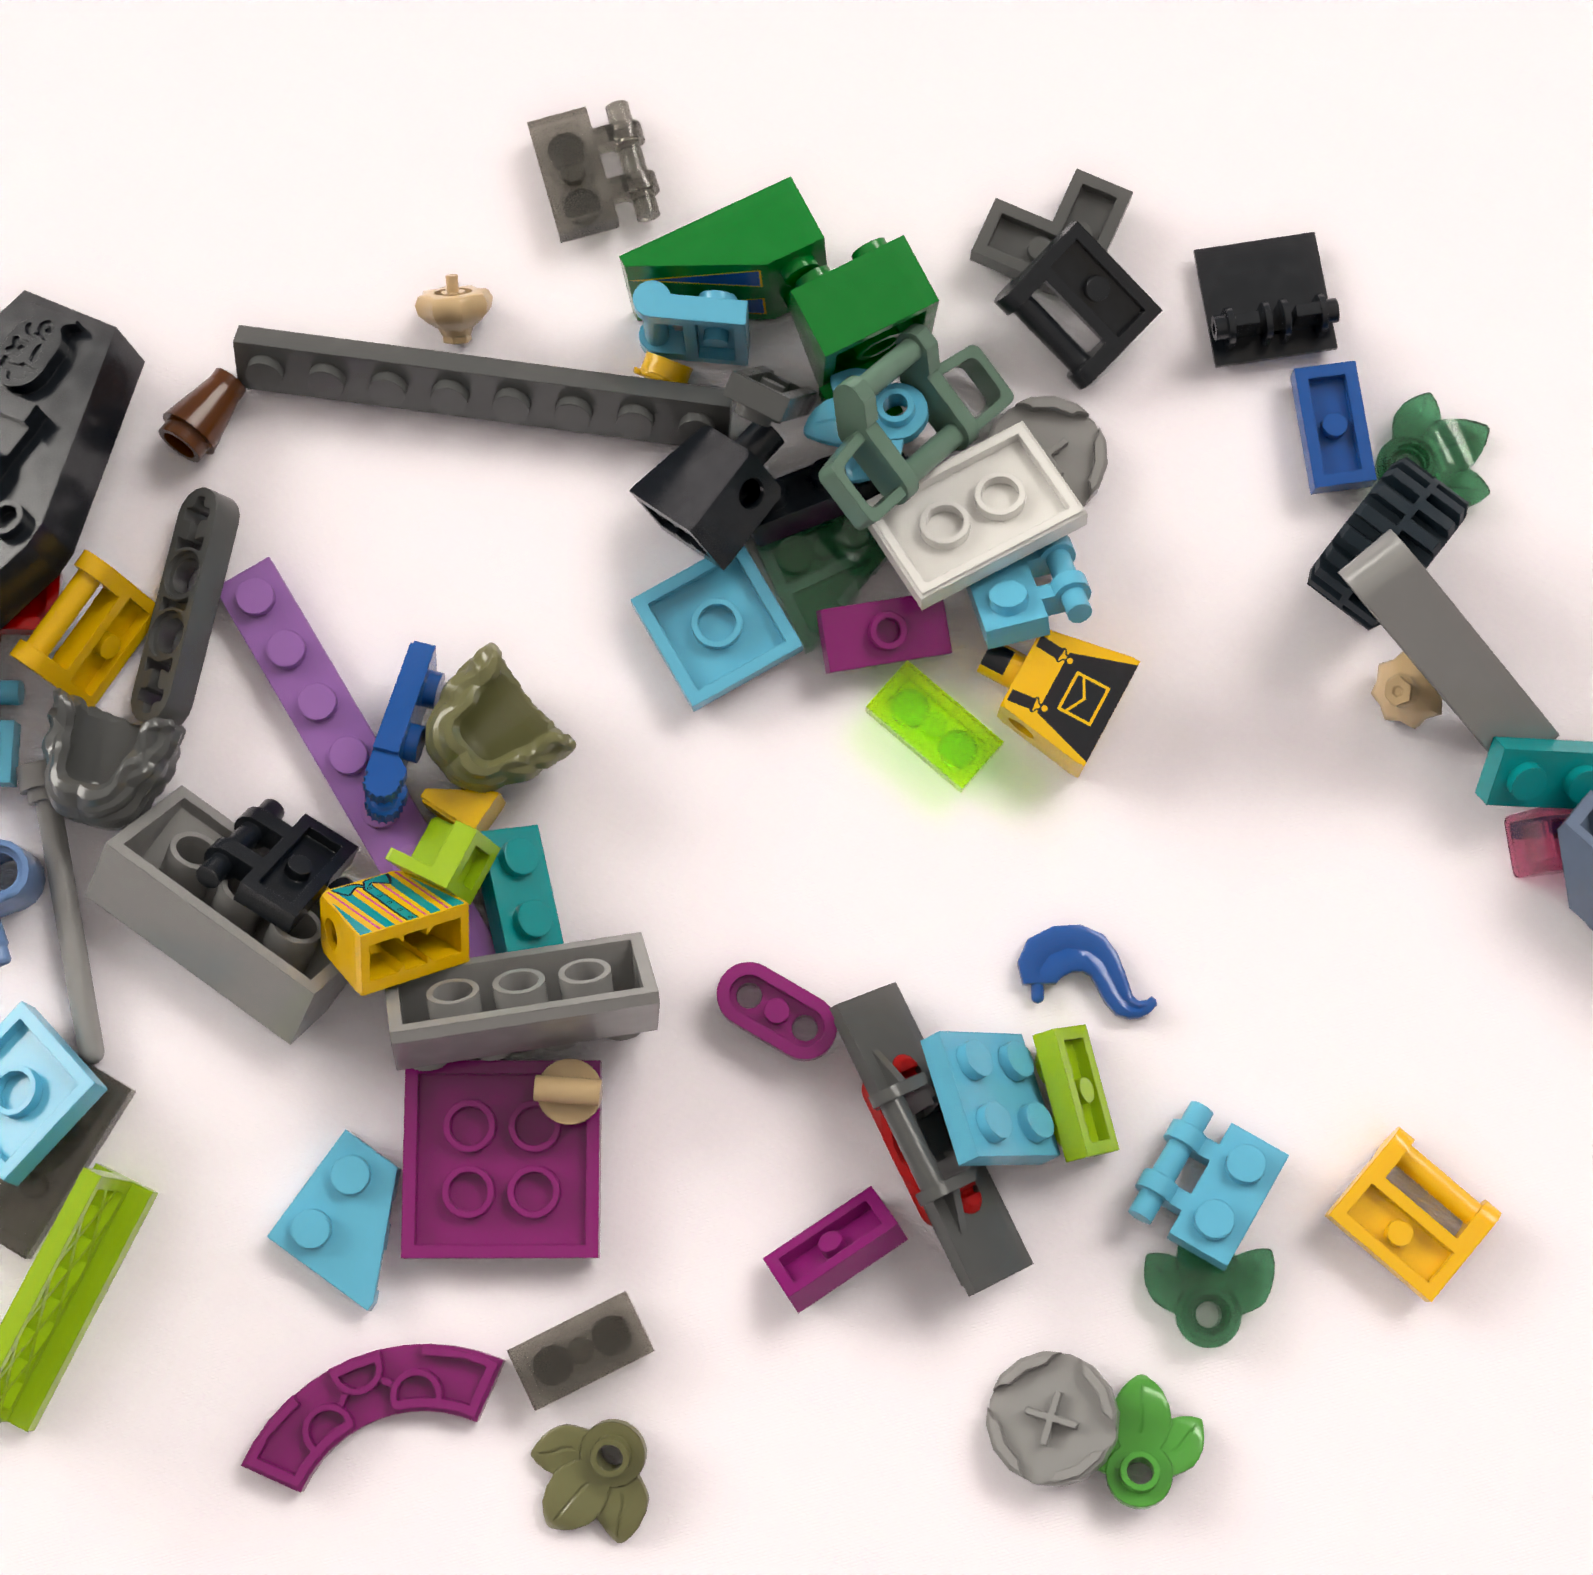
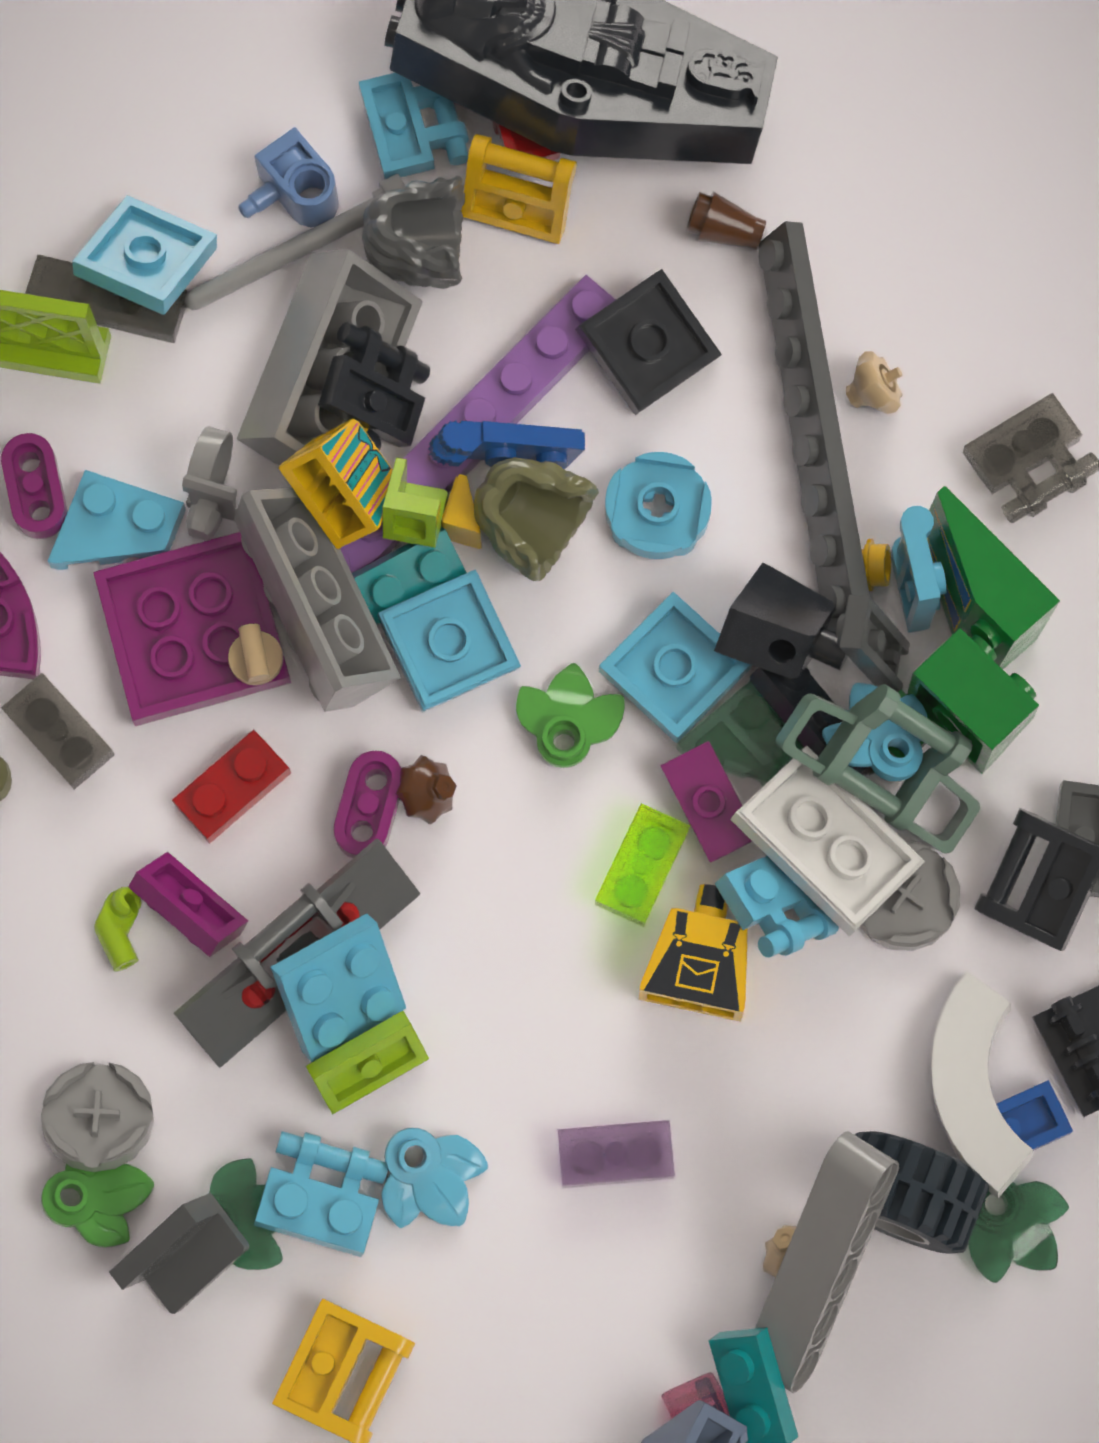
camera: 75 degrees right, 5 degrees down
(205, 522) = (562, 257): dark grey beam -> none
(269, 1303) = (35, 488): none -> magenta plate
(321, 541) = (648, 341): none -> black plate
(344, 1102) = (204, 482): none -> light grey piece
(508, 555) = (638, 483): none -> medium azure plate
(609, 867) = (448, 640): none -> medium azure plate
(705, 1164) = (231, 786): none -> red plate
(730, 753) = (570, 710): none -> bright green plate
(779, 940) = (426, 789): none -> reddish brown piece
(831, 1342) = (114, 925): none -> lime arm
(1079, 949) = (491, 1037): blue piece -> none
(1227, 1055) = (436, 1183): none -> medium azure plate
(1242, 1356) = (184, 1253): none -> dark grey panel
(1249, 849) = (616, 1154): none -> clear purple plate
(1280, 457) = (963, 1086): none -> white tile

